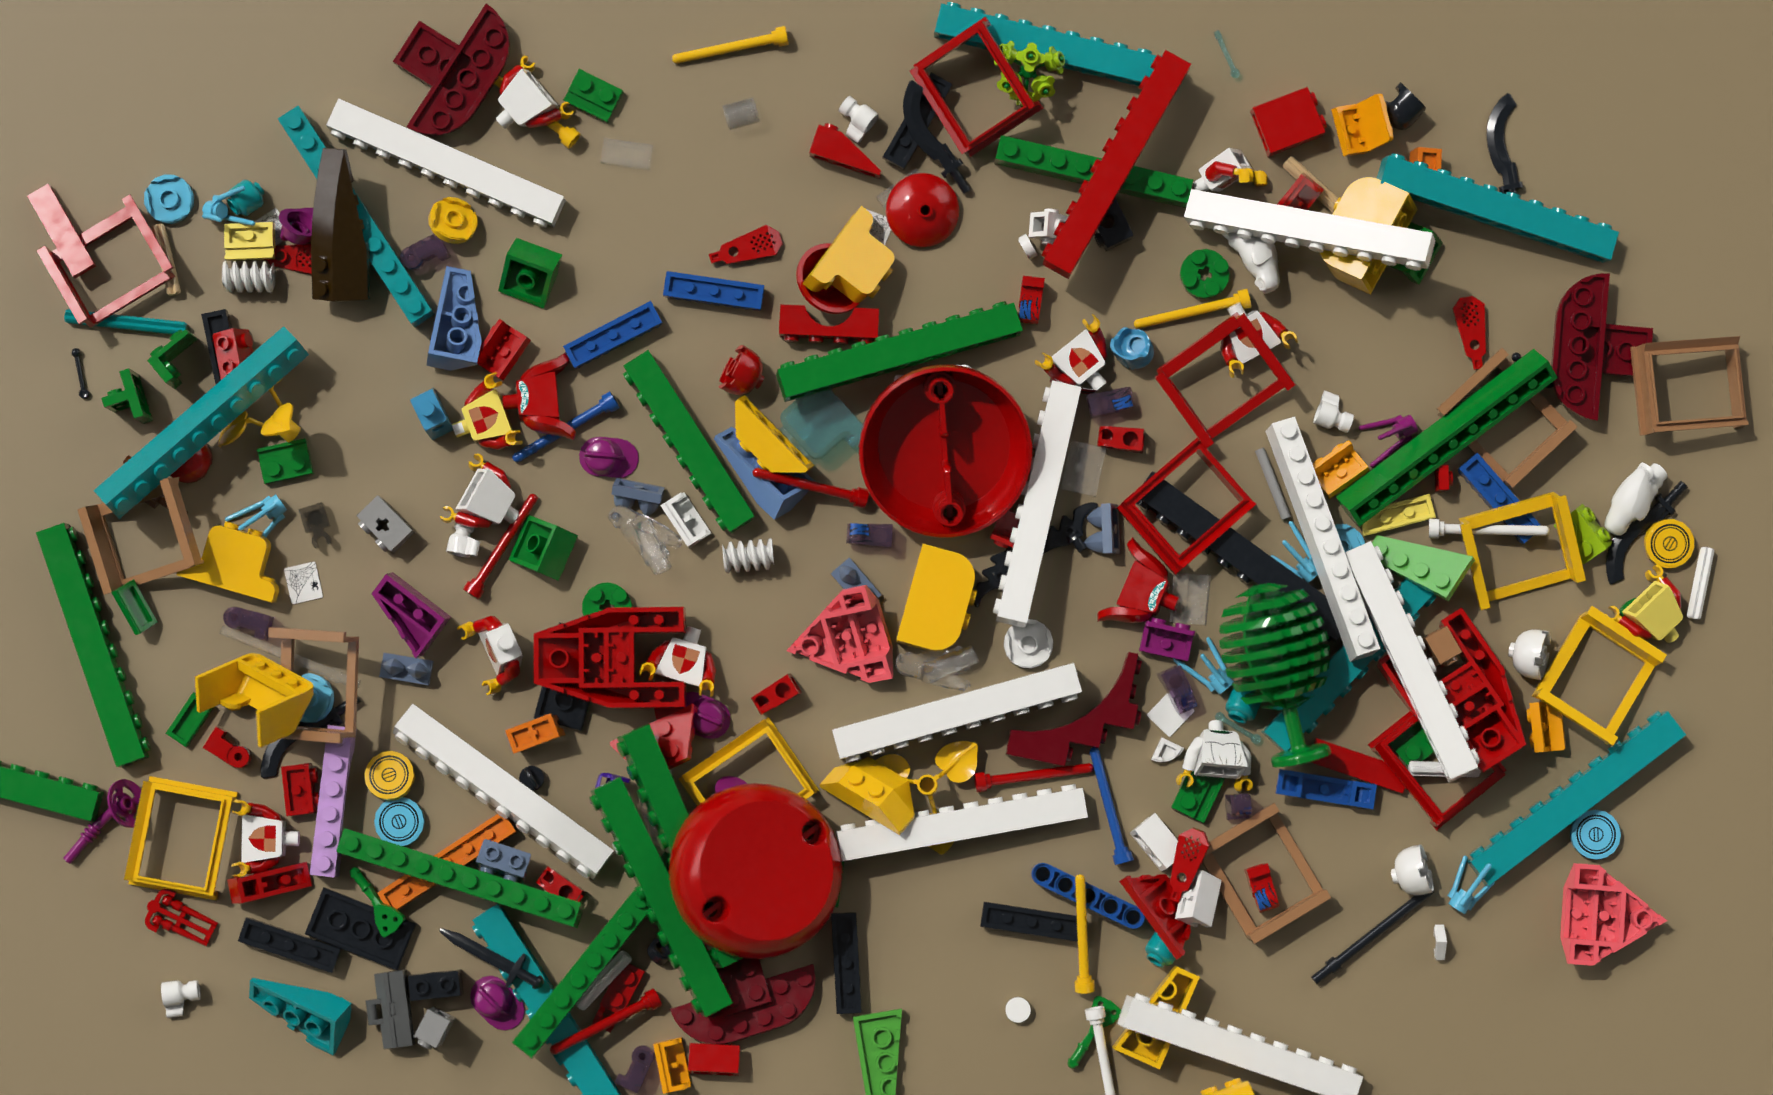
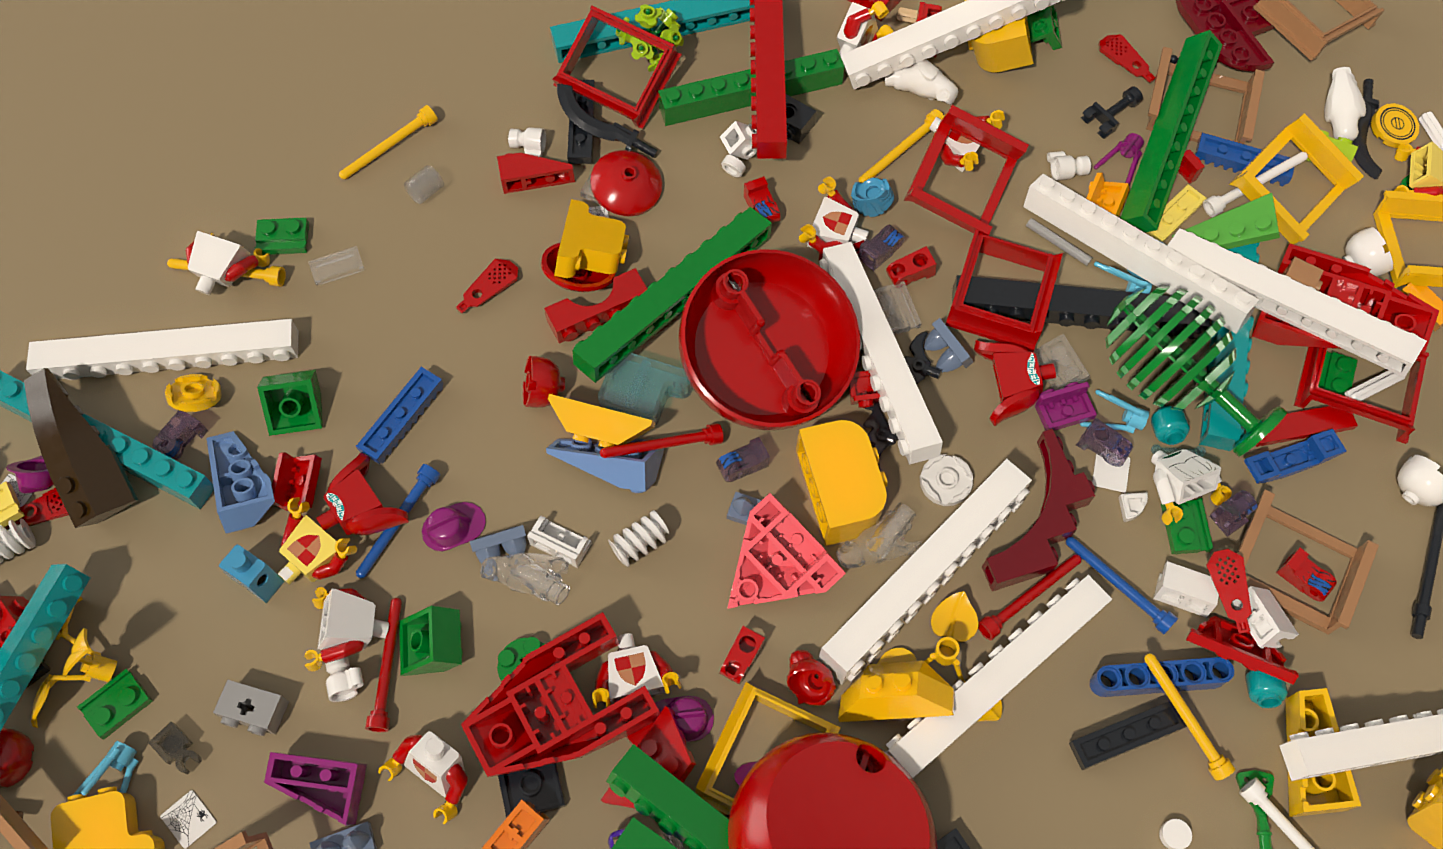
camera: 30 degrees left, 20 degrees down
(457, 73) = (138, 278): dark red plate -> none
(689, 442) = (525, 469): green brick -> none
(713, 291) = (476, 332): blue gear -> none
(815, 742) = (803, 679): none -> red piece
(1198, 261) = (894, 108): green plate -> none
(1442, 377) = (1131, 98): none -> black bar

